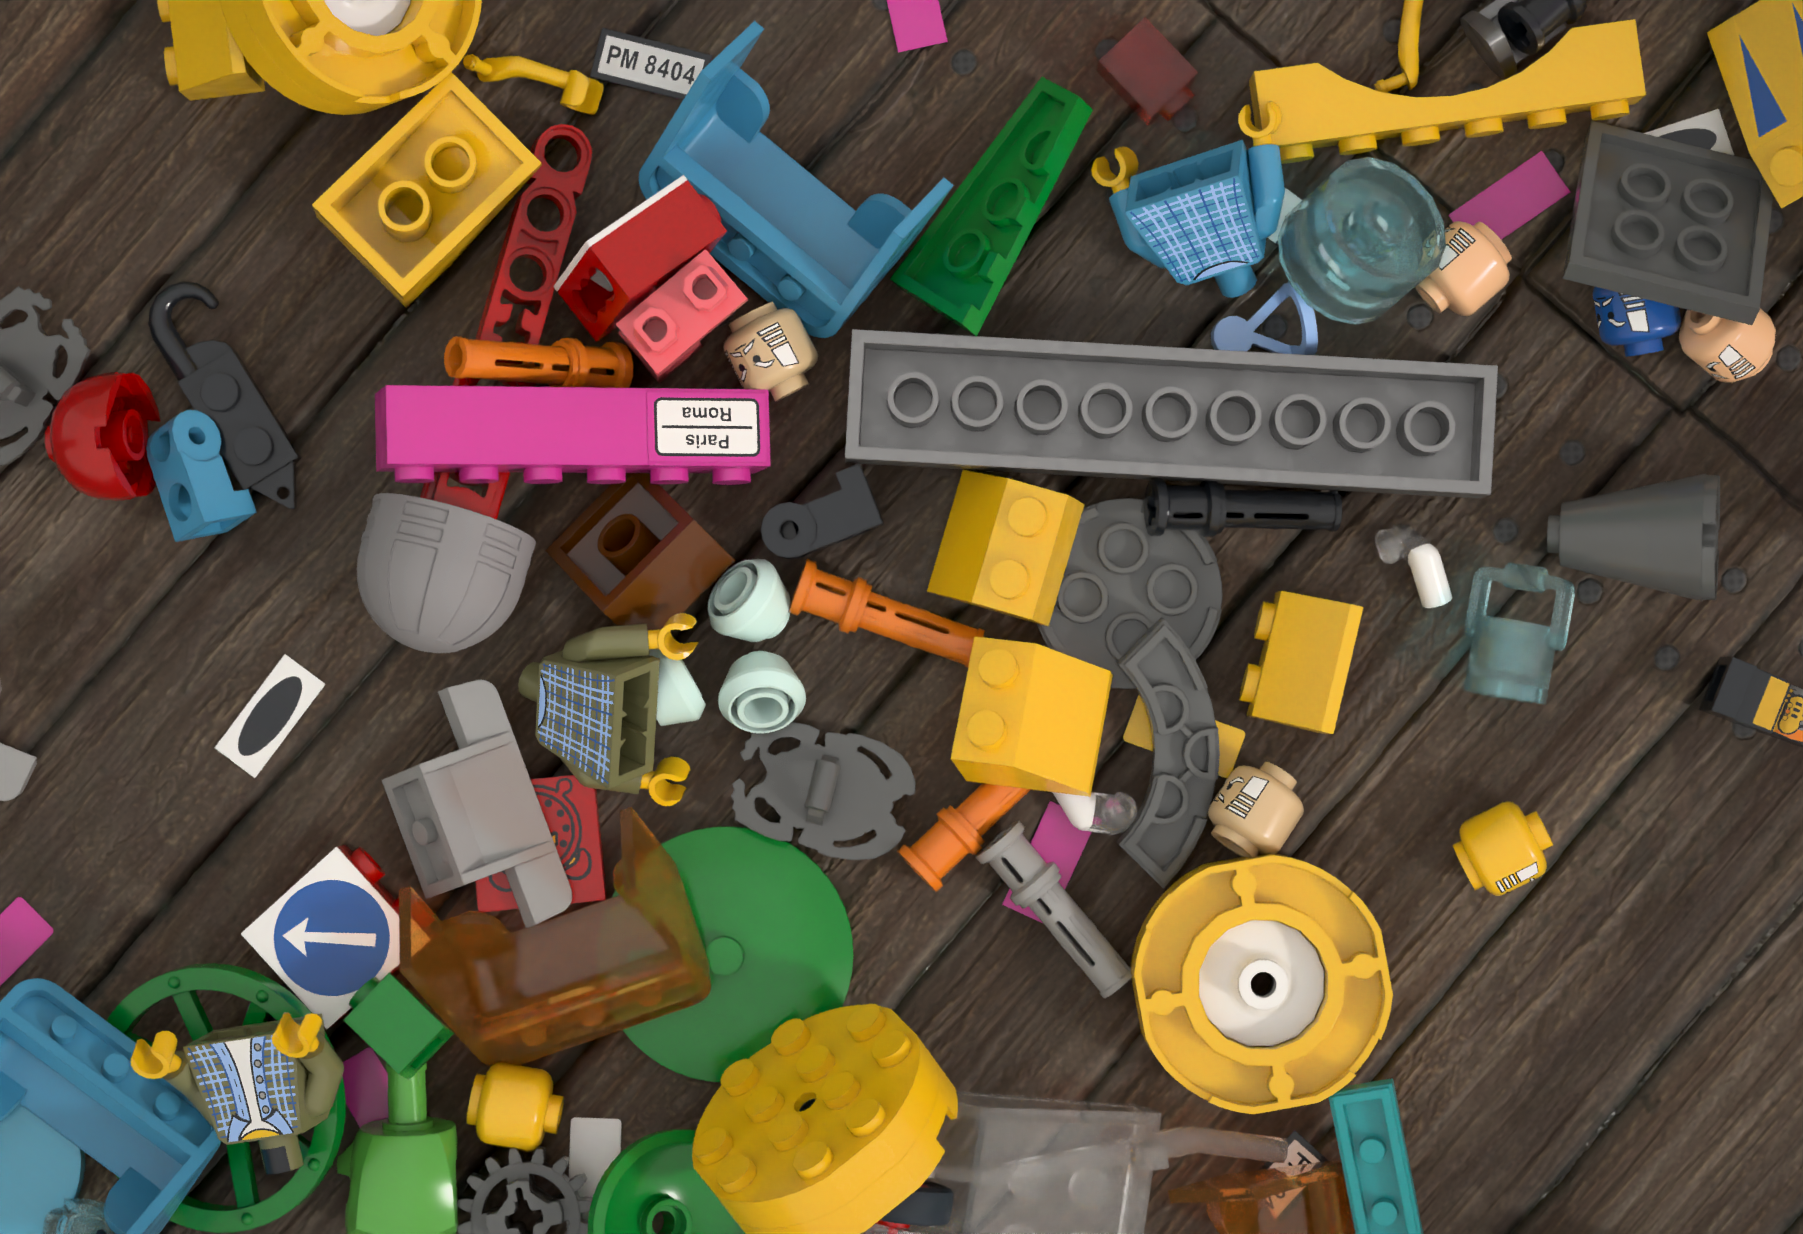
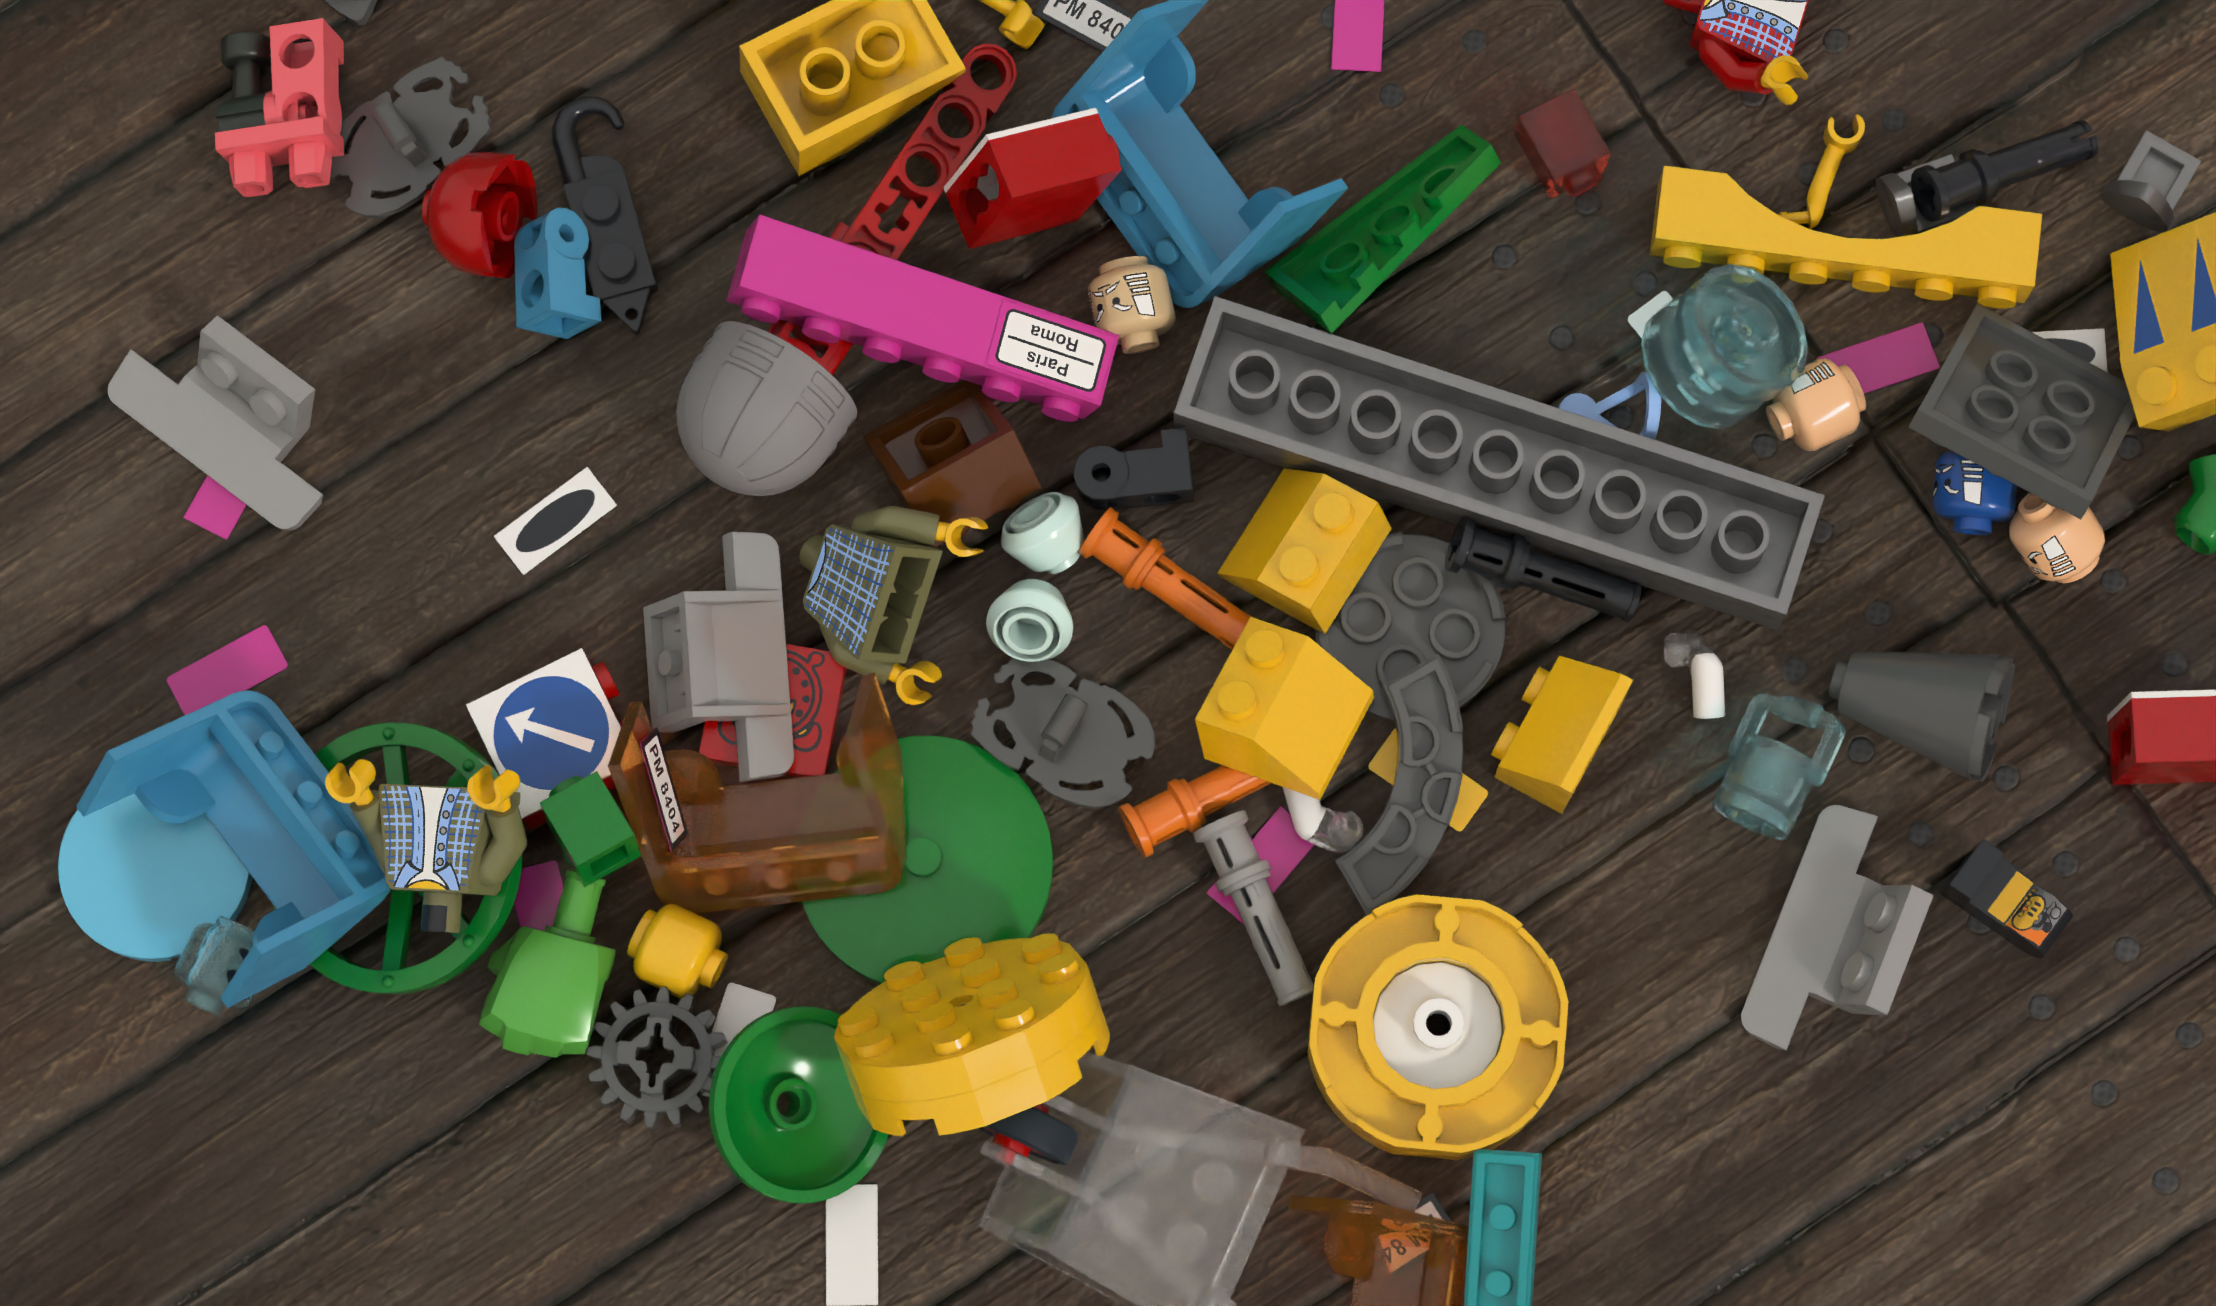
camera: 20 degrees right, 10 degrees down
(456, 960) = (664, 789): none -> sticker
(586, 369) = (934, 254): orange pin -> none
(678, 694) = (950, 597): light aqua cone -> none
(680, 314) = (1058, 233): coral hips -> none
(1203, 211) = (1583, 280): dark azure torso -> none
(1255, 810) = (1478, 861): tan head -> none
(1503, 848) = (1710, 966): yellow head -> none
(1612, 780) = (1835, 935): none -> light grey plate

